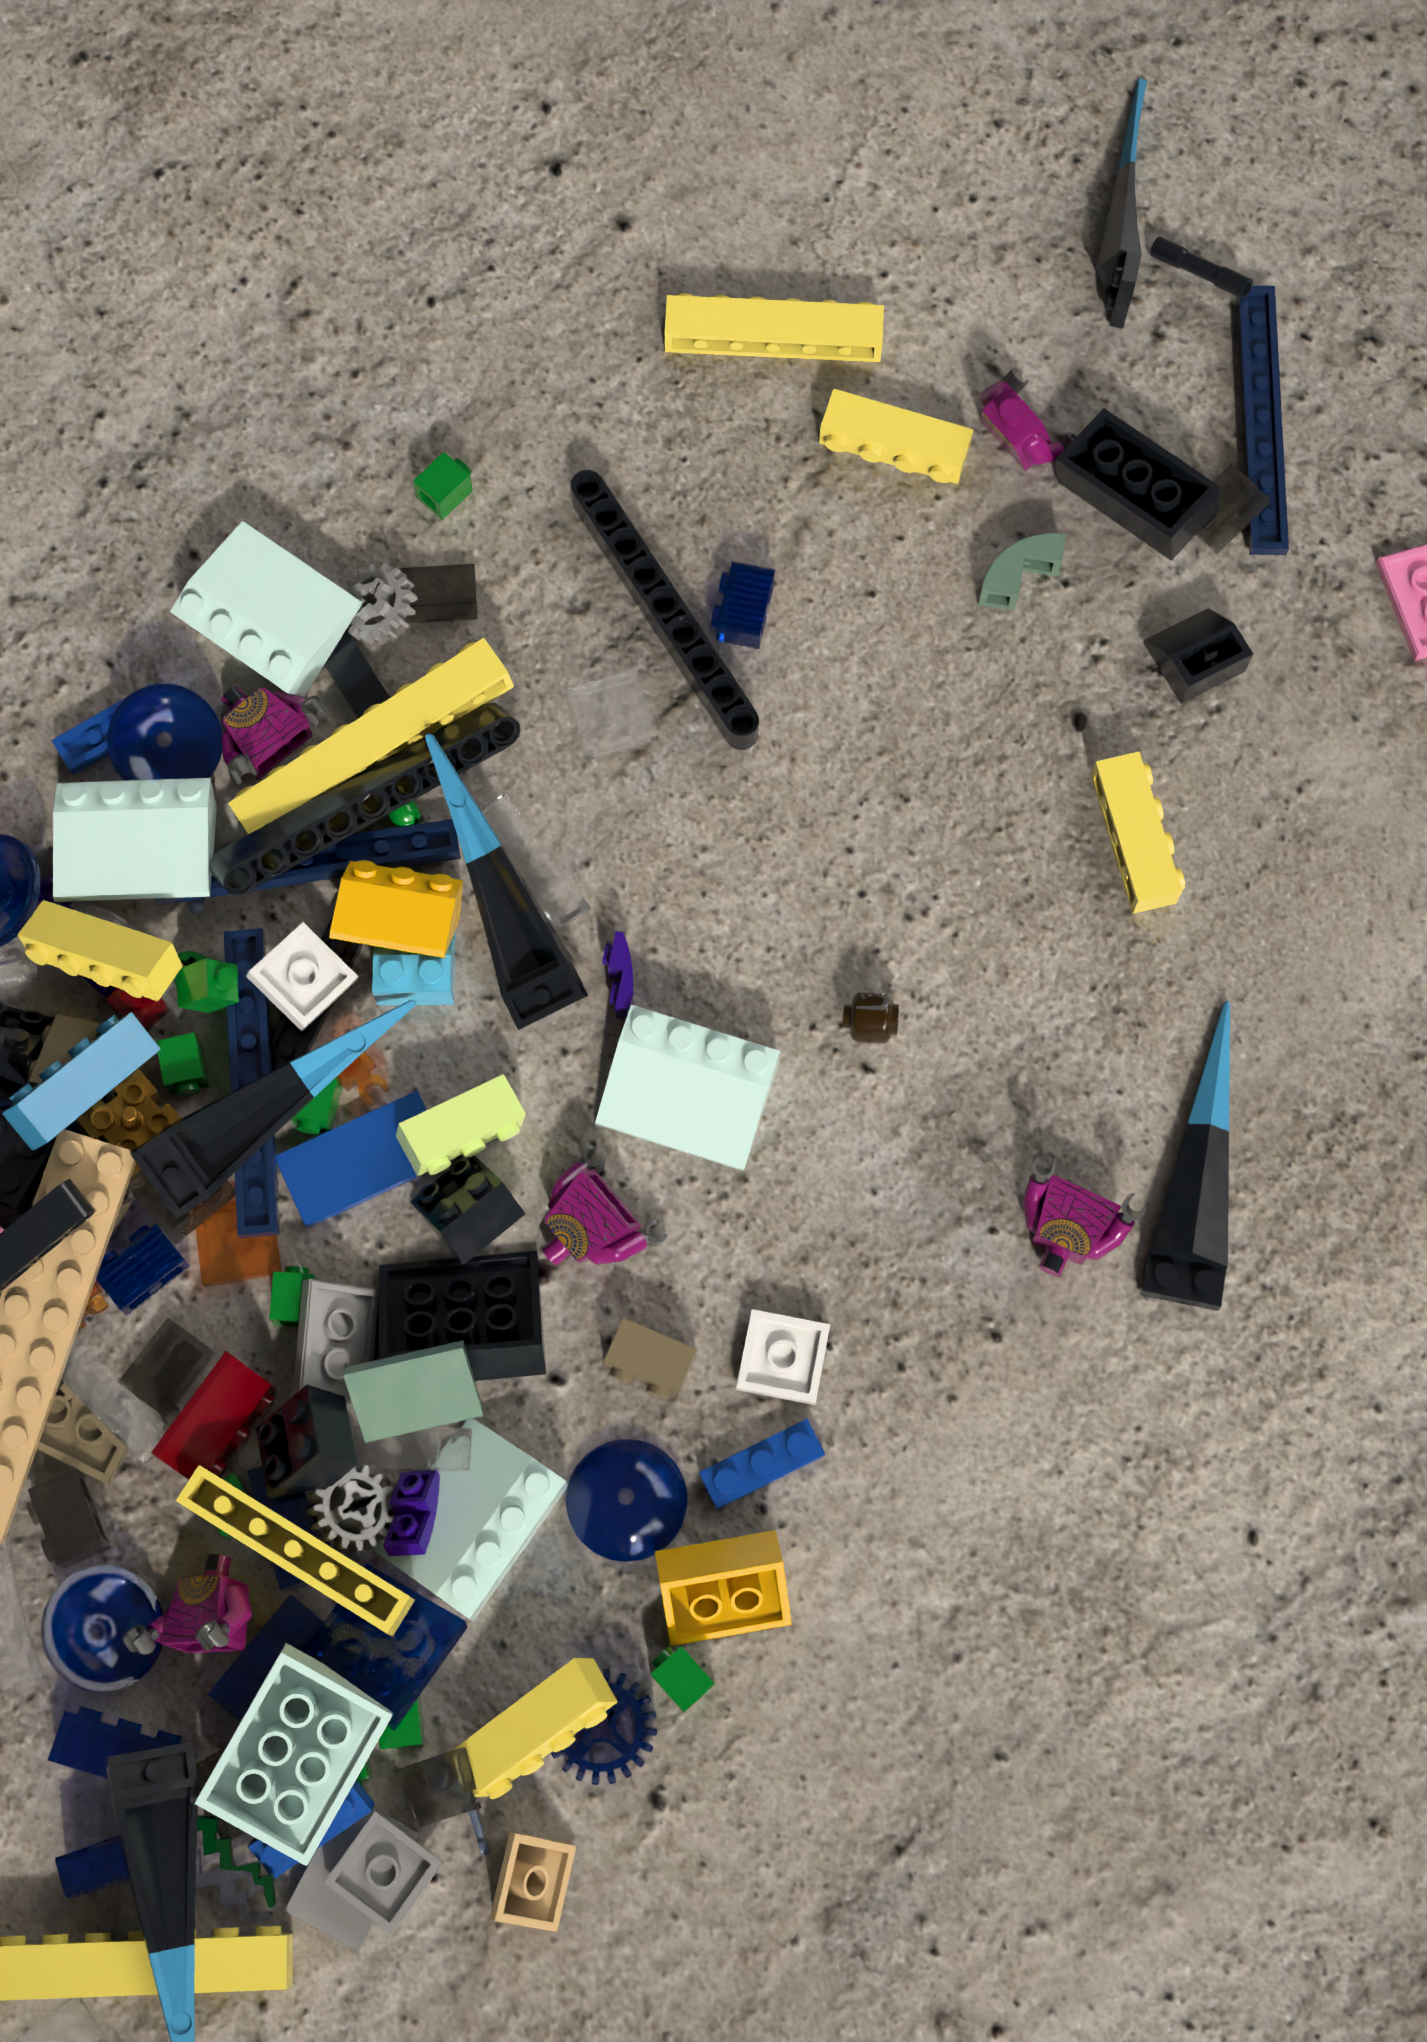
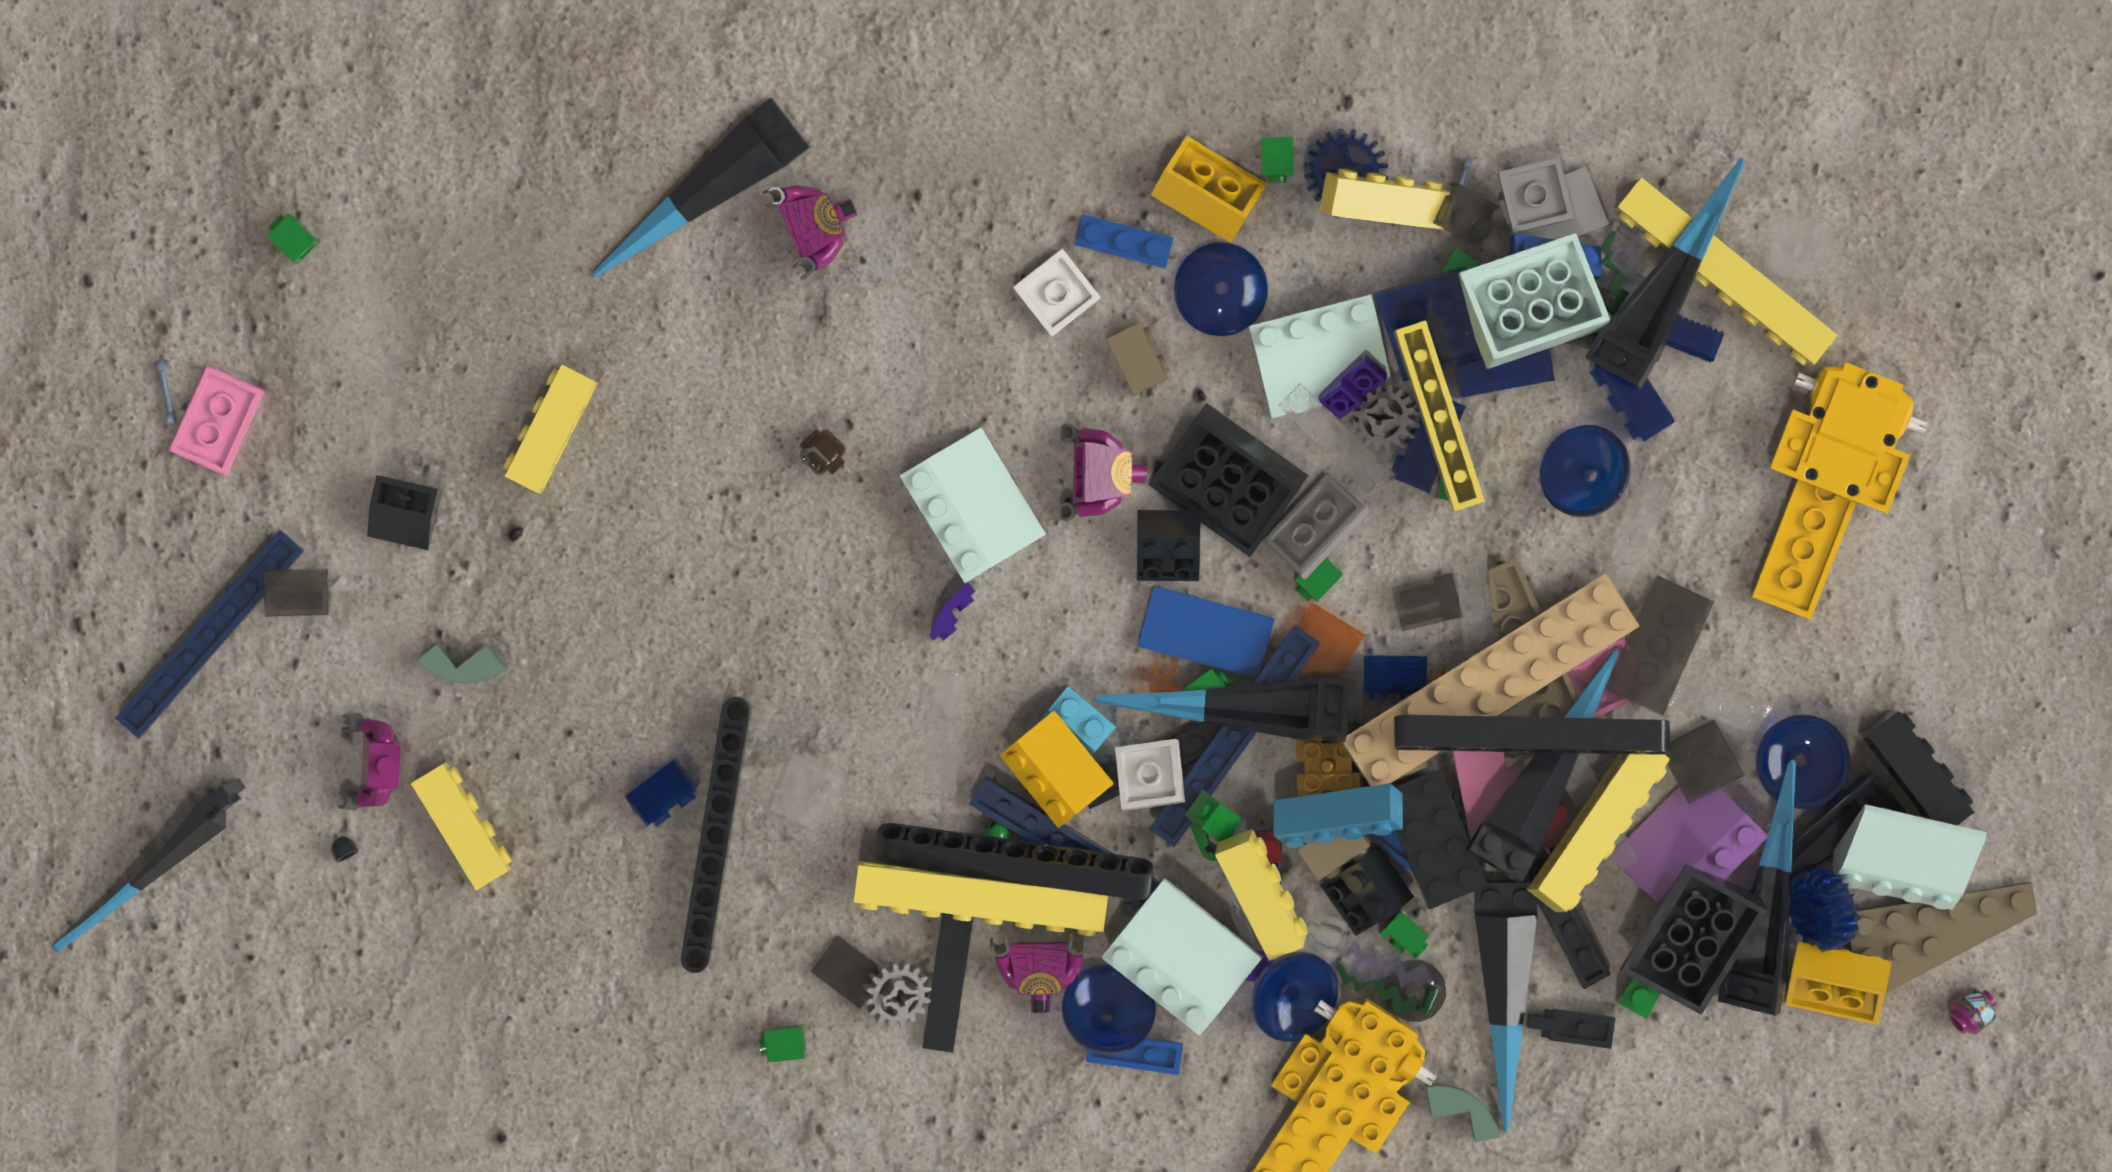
camera: 135 degrees left, 15 degrees up
(67, 1519) = (1556, 557): clear smoke brick -> none
(182, 1064) = (1267, 783): green brick -> none
(204, 1615) = (1523, 431): magenta torso -> none
(216, 1419) = (1423, 538): dark red slope -> none
(267, 609) = (971, 1046): light aqua slope -> none
(306, 1443) = (1382, 476): black slope -> none
(413, 1391) = (1294, 455): sand green tile -> none
(461, 1126) = (1131, 596): yellowish green brick -> none
(526, 951) = (997, 677): black plate -> none
(532, 1882) = (1456, 118): tan slope -> none
(774, 328) = (471, 972): light yellow brick -> none
(980, 340) = (343, 848): none -> black hinge
(1137, 484) = (340, 653): black brick -> none
(1220, 276) = (156, 791): black piece -> none

